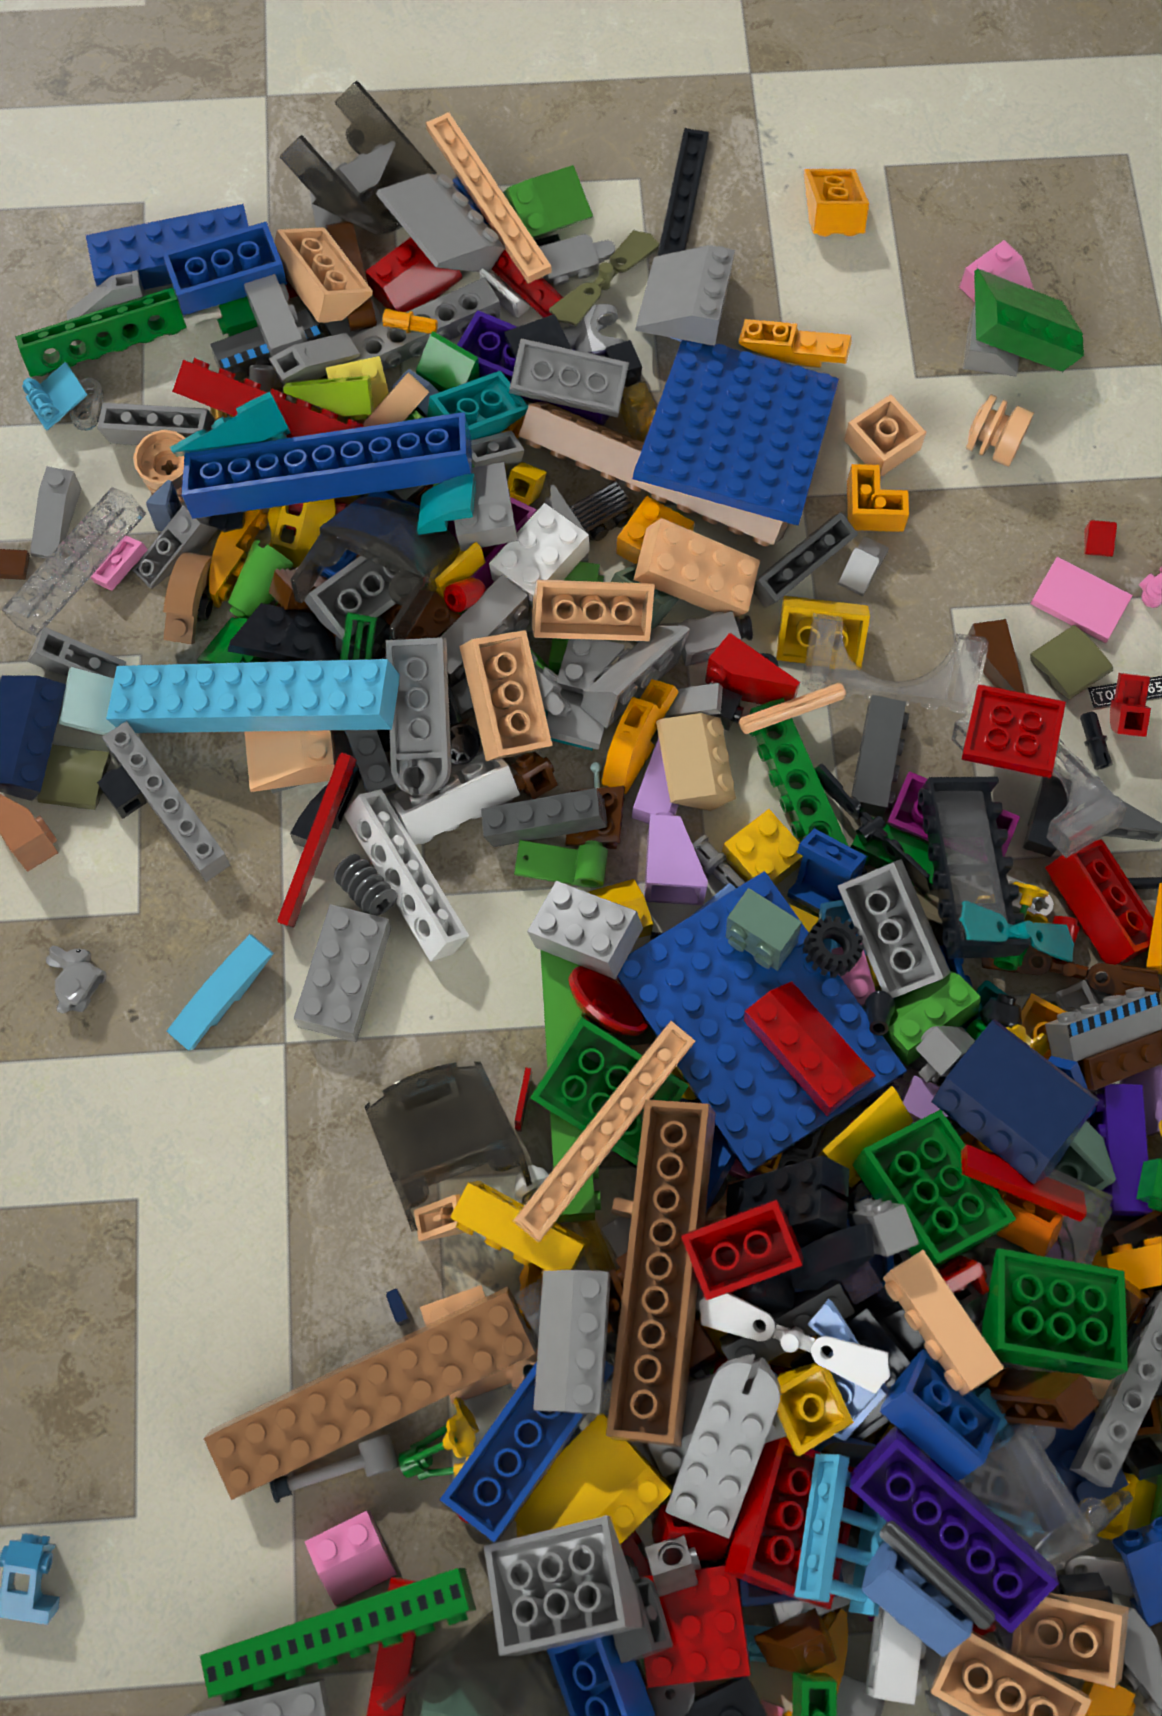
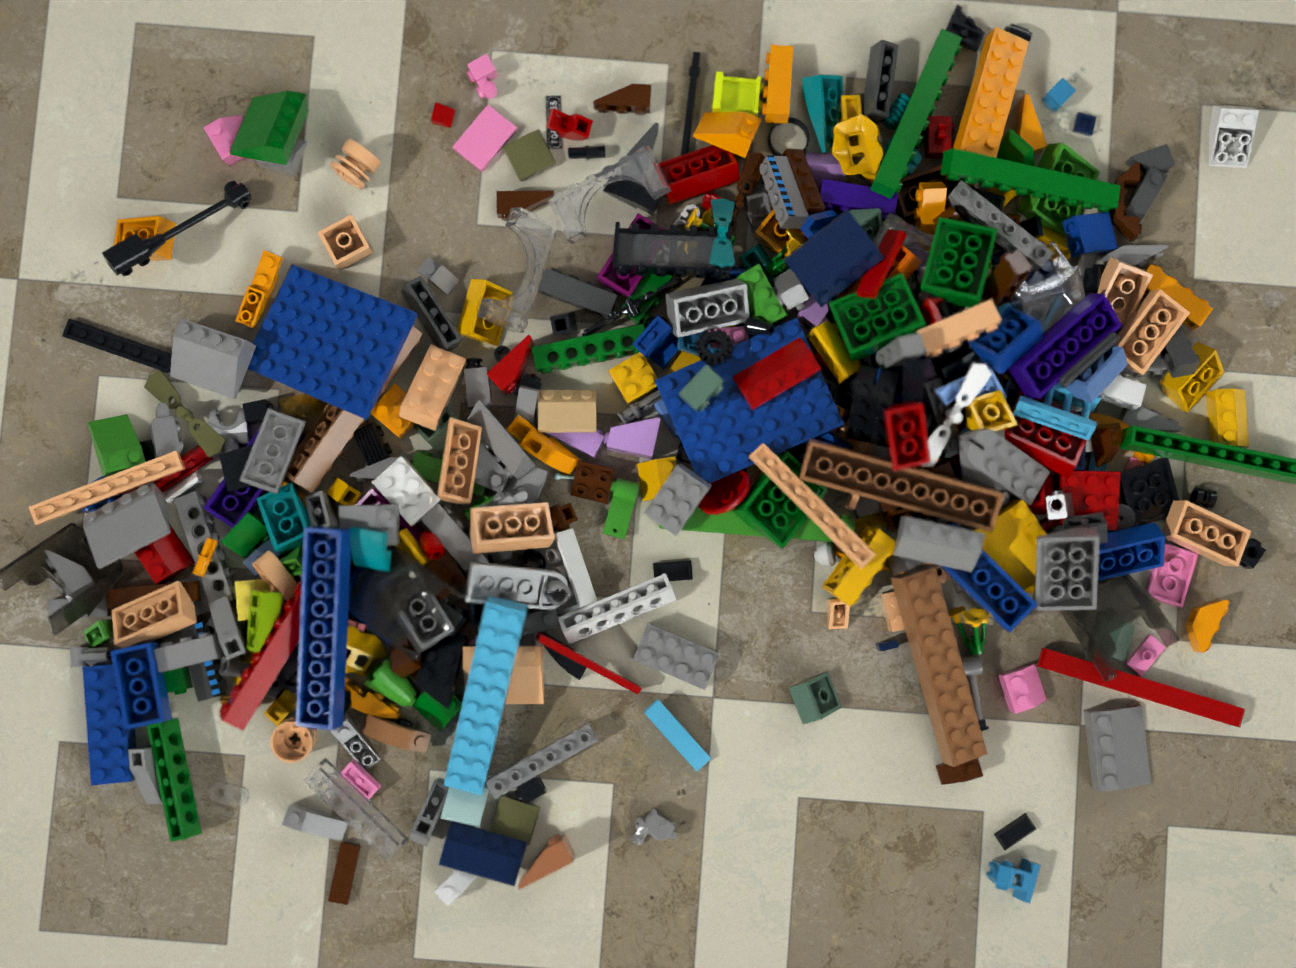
camera: 85 degrees left, 15 degrees up
(54, 395) = (220, 816): medium azure hinge -> none
(104, 1578) = (1015, 831): none -> black tile
(133, 422) = (260, 744): light grey brick -> none
(163, 505) = (327, 743): sand blue slope -> none
(197, 1462) = (961, 773): none -> reddish brown slope
(254, 423) = (285, 679): teal wedge -> none
(259, 209) = (89, 656): none -> light grey piece
(292, 219) = (99, 633): none -> bright green slope
(299, 1201) = (815, 698): none -> sand green slope
(337, 1633) = (1067, 699): green brick -> none
(358, 636) = (442, 624): green tile -> none
(365, 885) = (622, 637): dark grey piece -> none
(442, 1127) = (781, 607): clear smoke windscreen -> none
(476, 956) = (674, 570): none -> black tile
(523, 1099) = (774, 553): red piece -> none
(544, 817) = (593, 514): dark grey brick -> none
(792, 708) = (541, 342): light nougat axle -> none
(815, 177) = (137, 251): none -> black bar
(828, 739) = (563, 323): none -> black brick
(874, 508) = (398, 263): light orange brick -> none
(1002, 1010) = (767, 252): black cone -> none
(1014, 731) = (582, 204): red plate -> none

